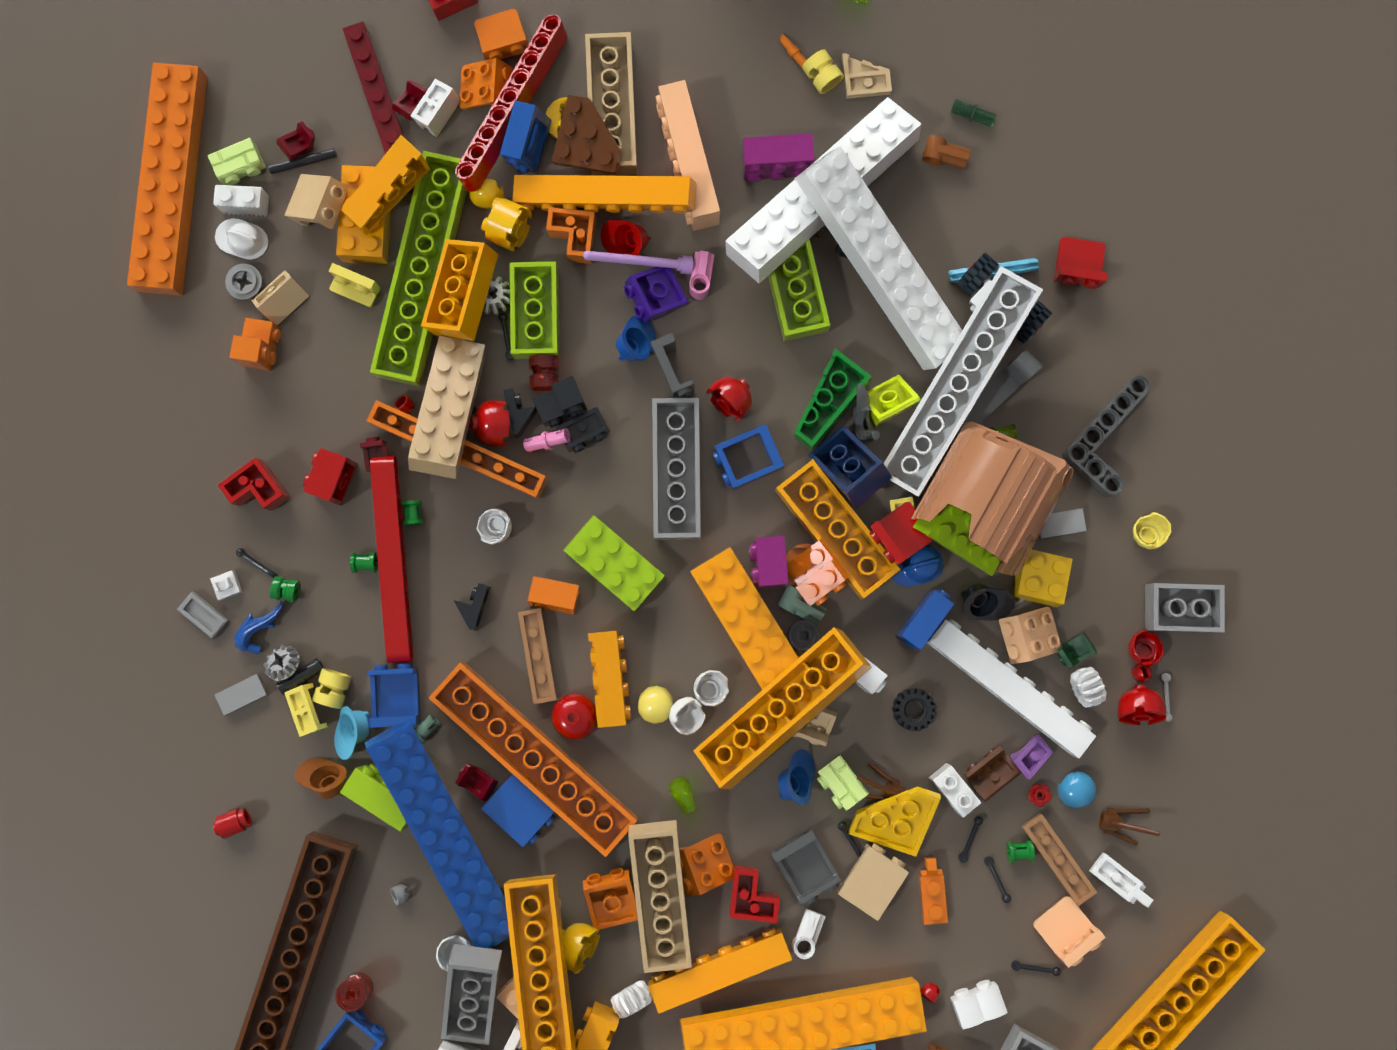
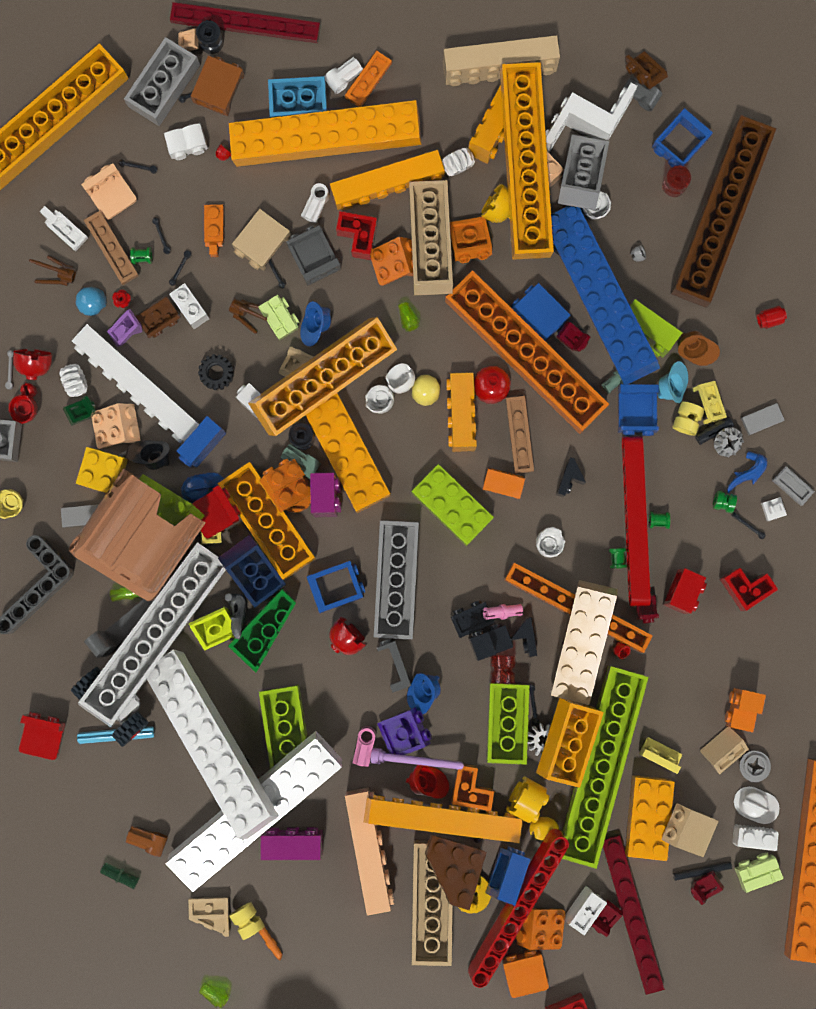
camera: 175 degrees left, 0 degrees up
(386, 185) = (629, 835): light orange wedge -> none
(491, 423) = (548, 627): red cylinder -> none
(898, 820) = (237, 284): yellow plate -> none

